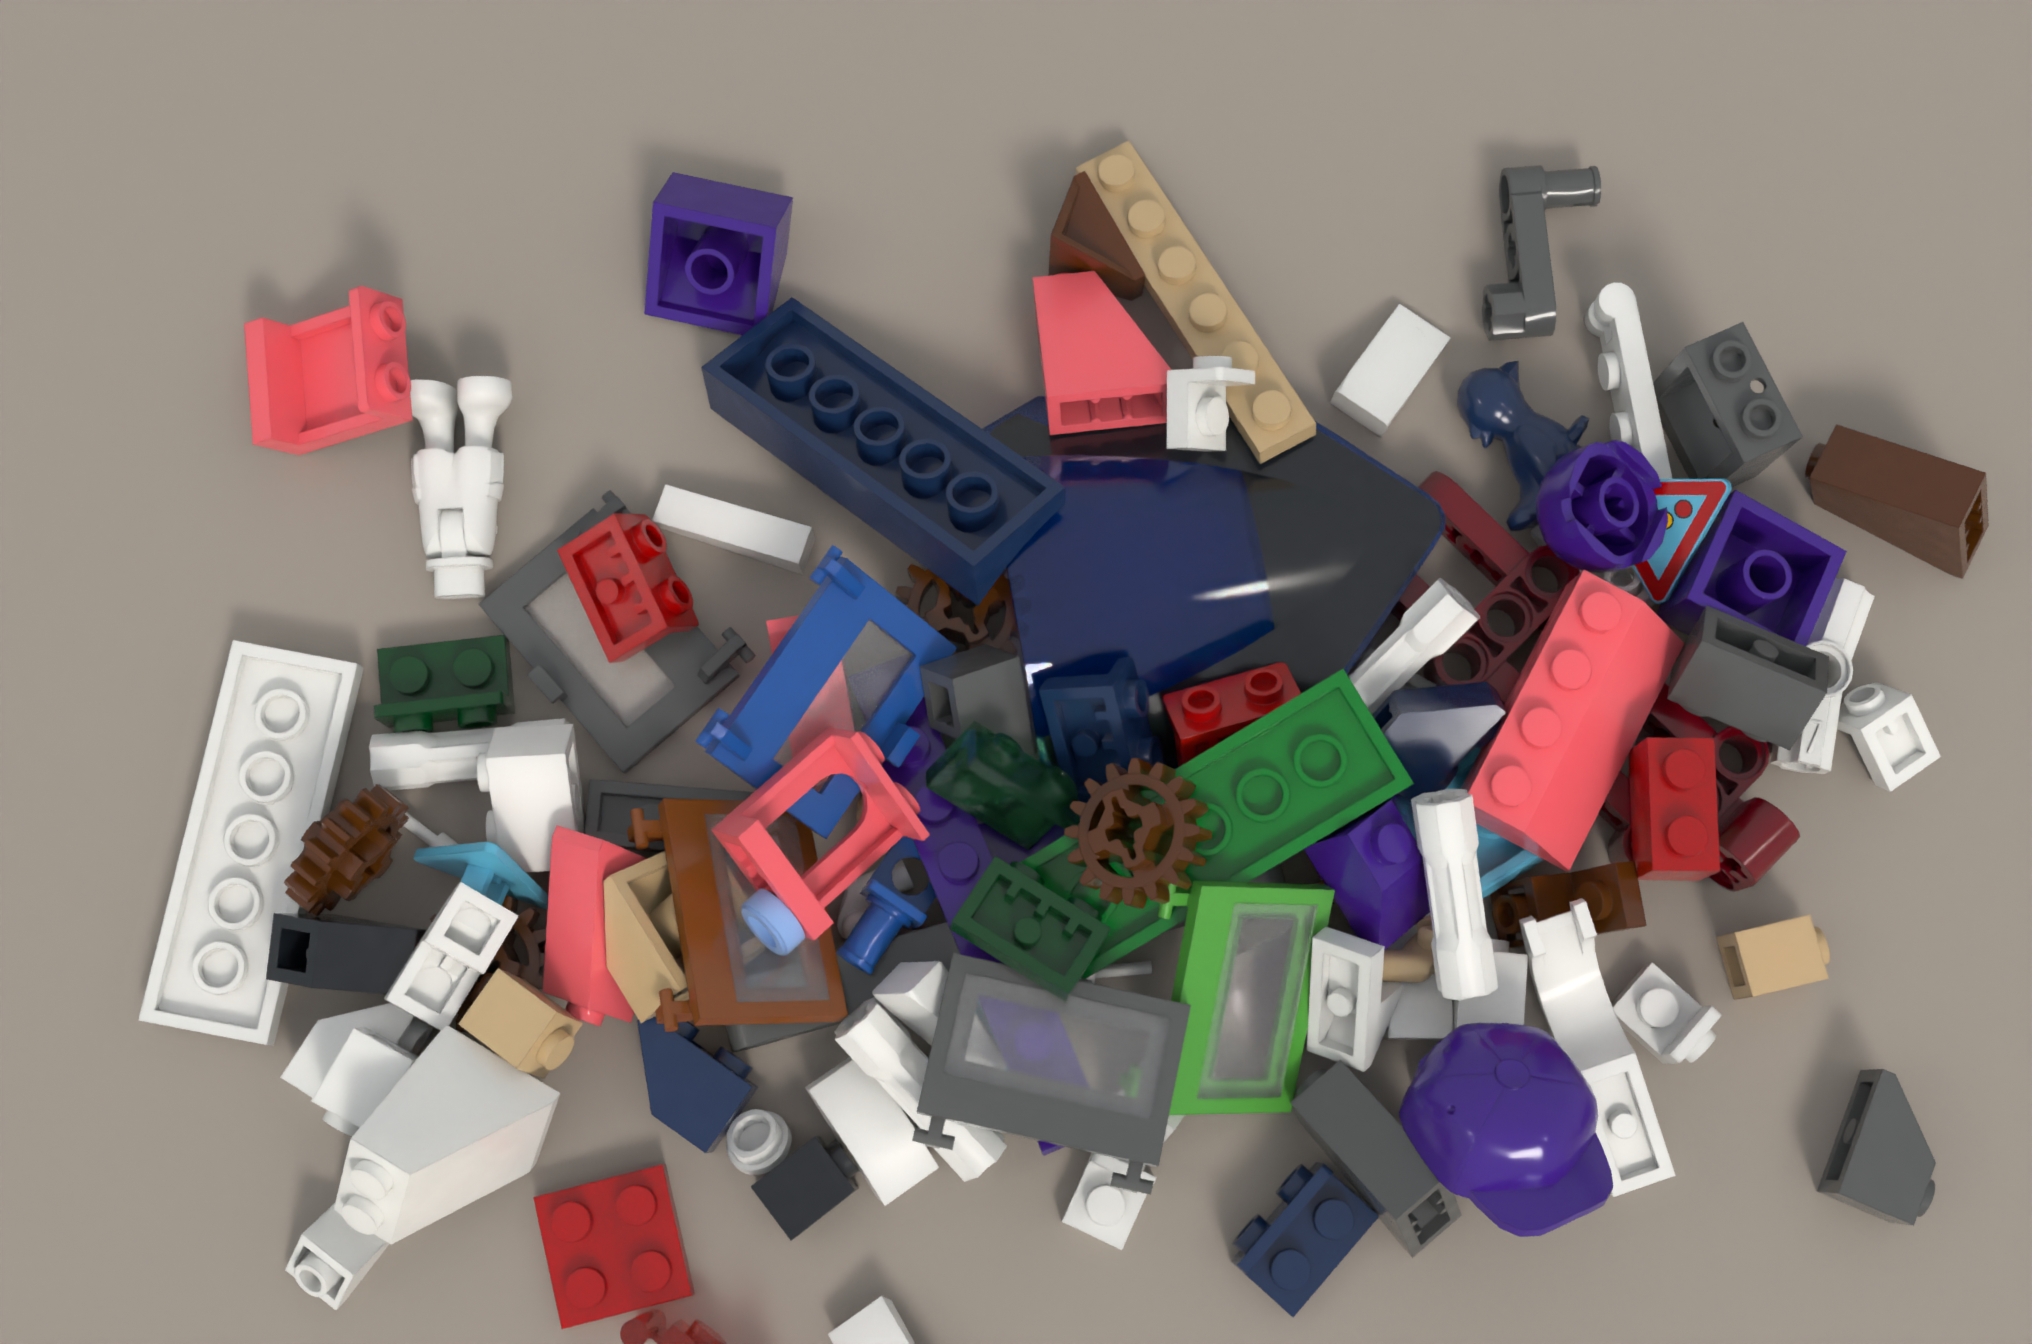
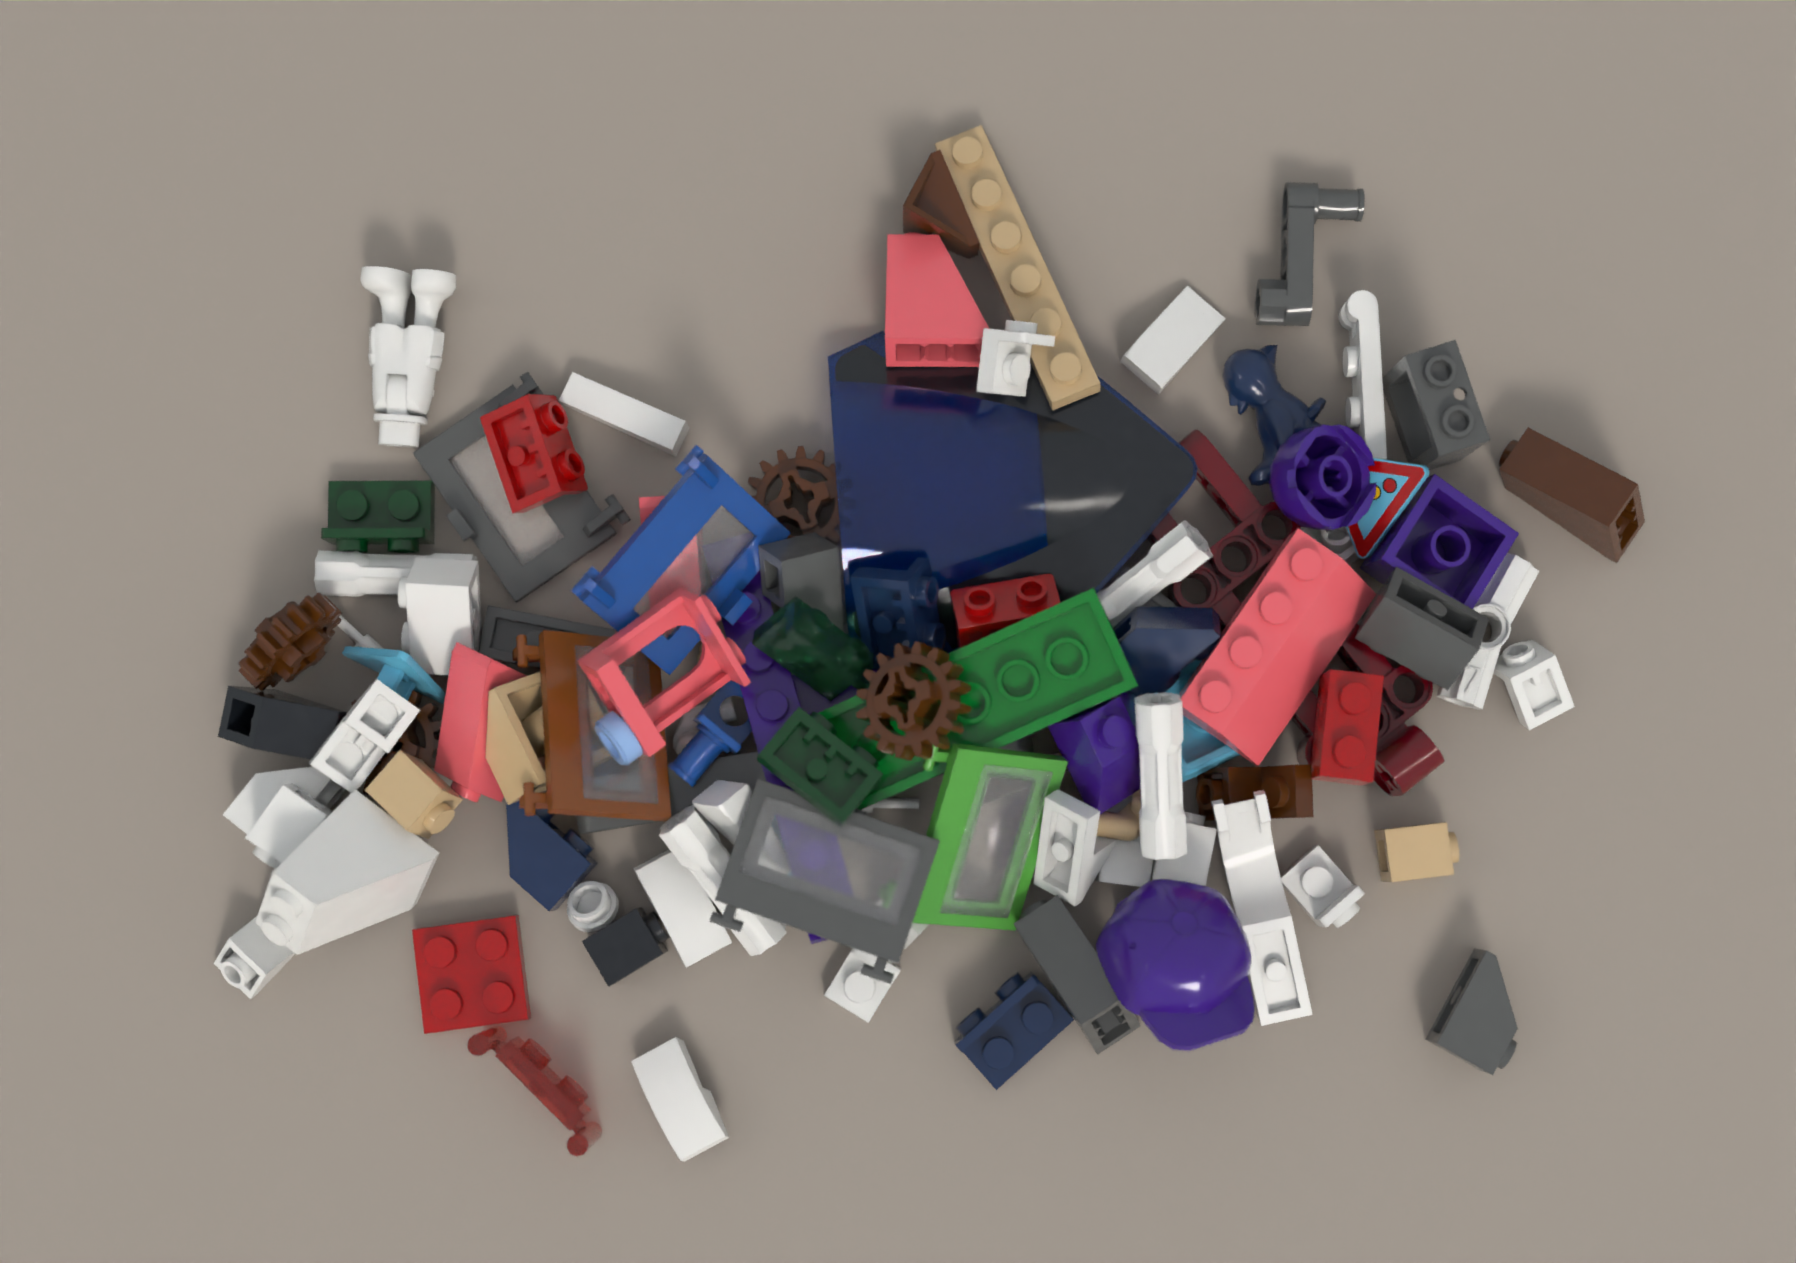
camera: 10 degrees right, 5 degrees up
(257, 793) = (221, 593): white plate -> none
(329, 374) = (309, 253): coral panel -> none
(716, 253) = (633, 185): dark purple slope -> none
(882, 447) = (748, 362): dark blue arch -> none

